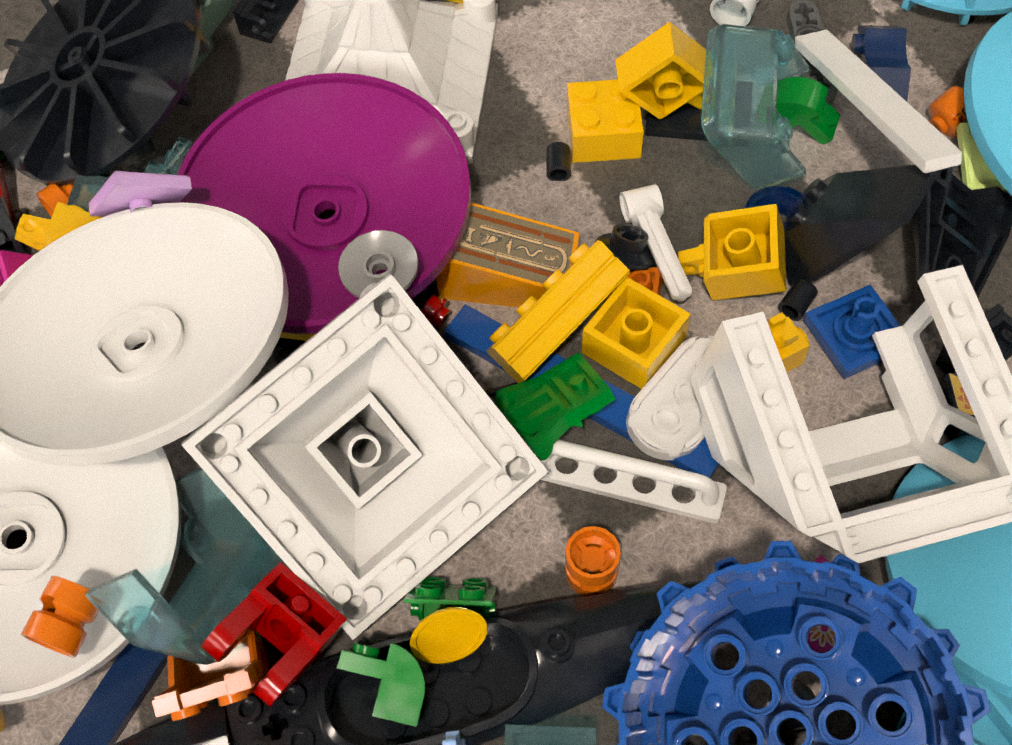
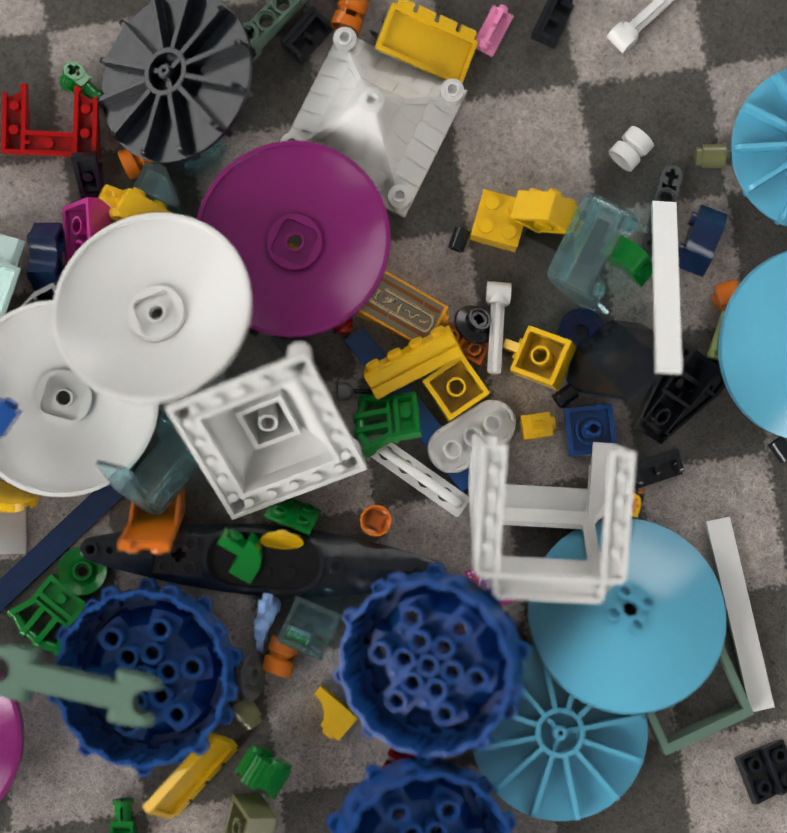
camera: 20 degrees right, 25 degrees up
(61, 618) = (81, 466): orange wheel -> none
(136, 190) = (180, 208): lavender plate -> none
(289, 618) = (201, 503): red brick -> none
(377, 252) = (297, 310): light grey dish -> none

